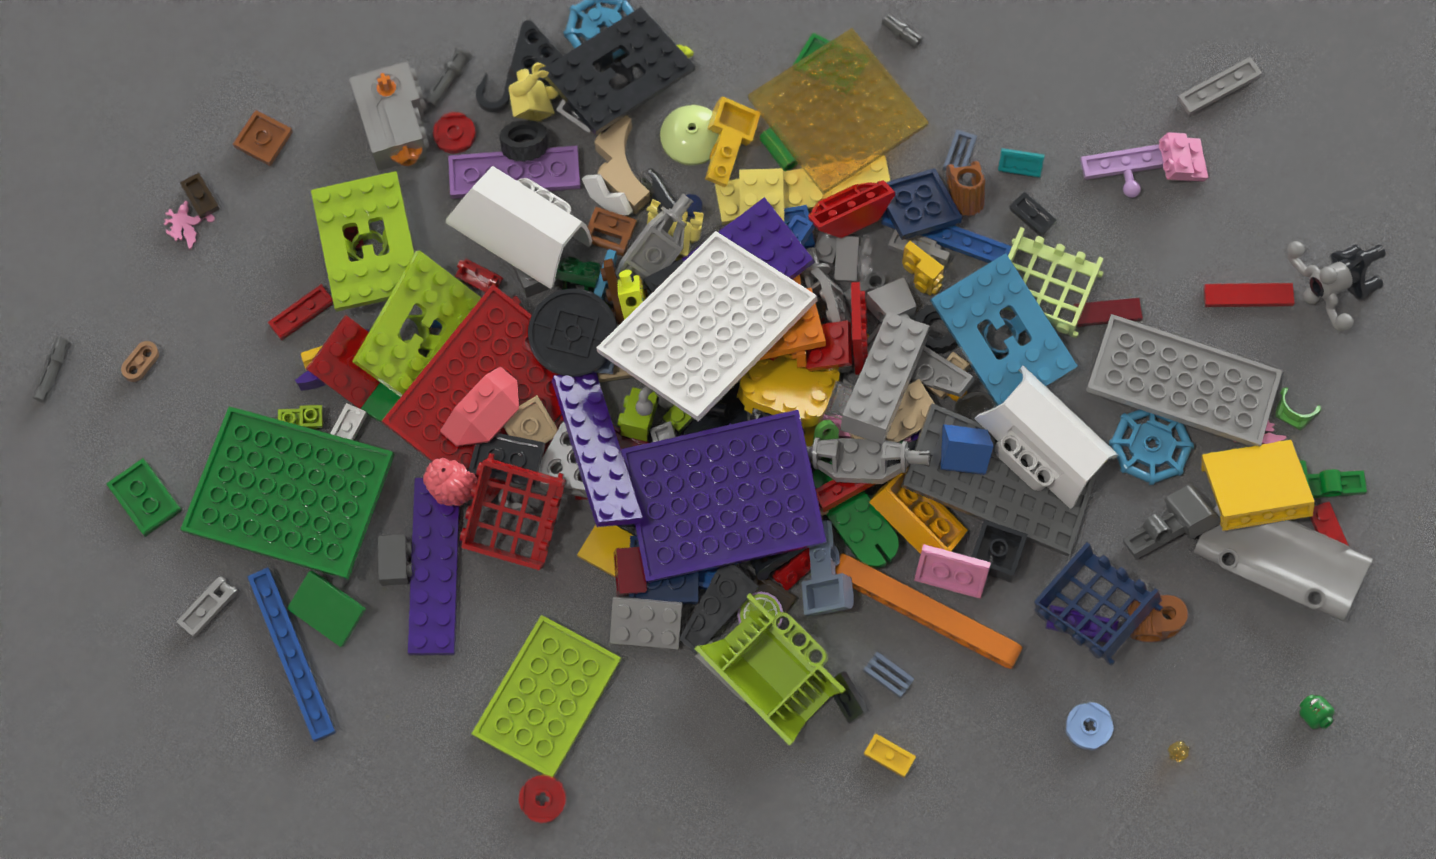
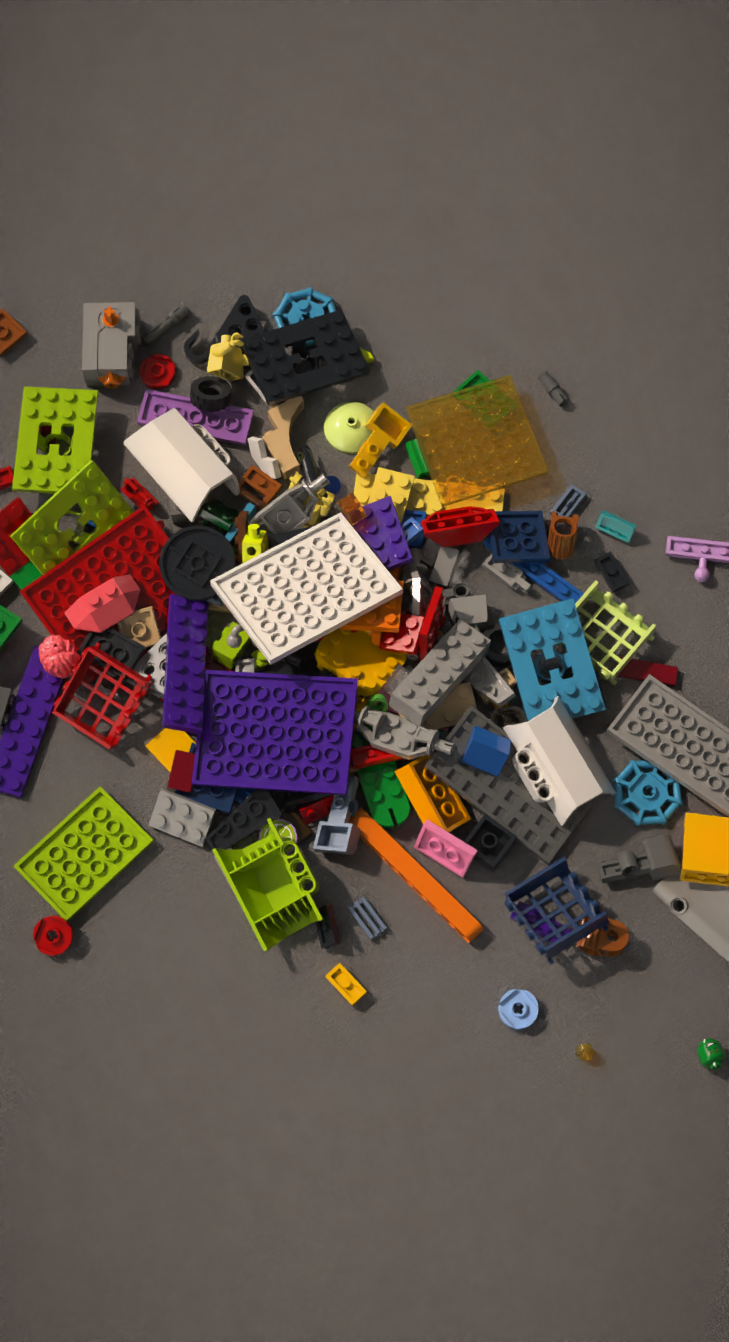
camera: 15 degrees right, 0 degrees up
(727, 223) = (351, 508): none -> clear orange brick
(927, 270) = (505, 594): yellow plate -> none

